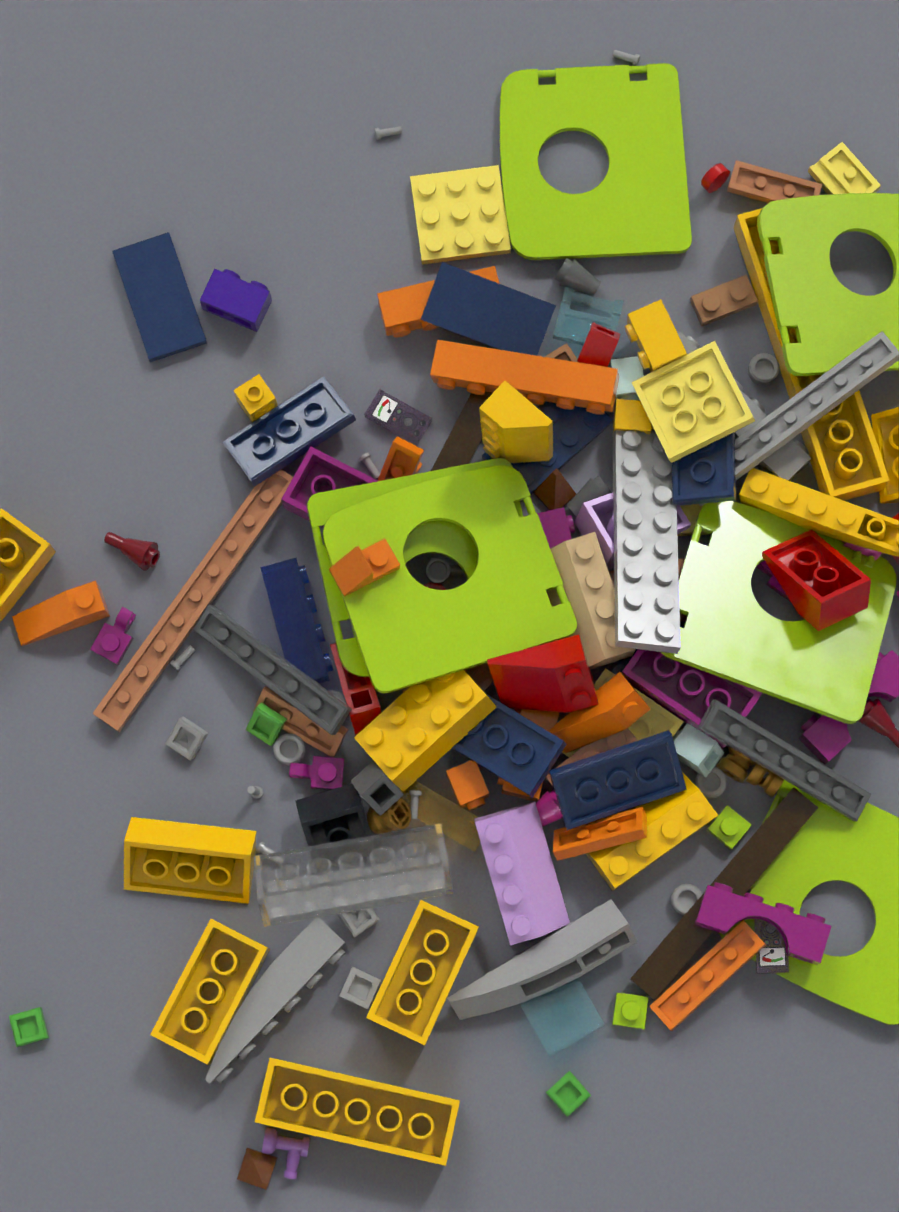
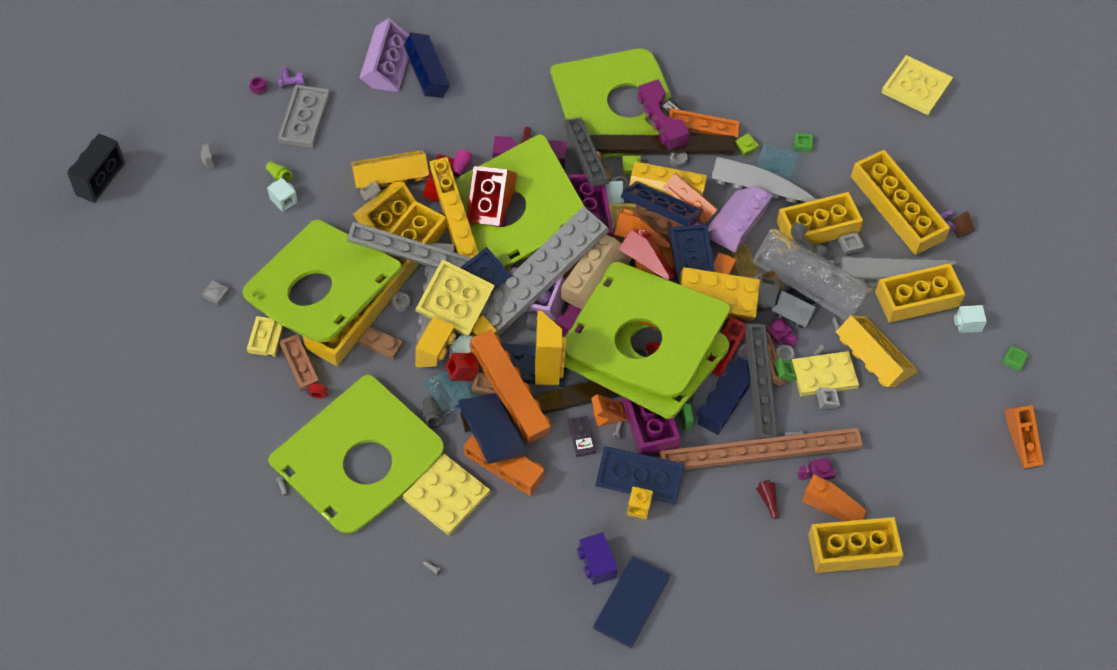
camera: 135 degrees left, 20 degrees down
(124, 1022) = (970, 319): none -> light aqua brick
(222, 771) = (825, 371): none -> light yellow plate
(307, 549) = (687, 417): none -> bright green tile
(364, 566) = (681, 357): orange slope -> none
(384, 931) = (798, 232): none -> dark grey bar

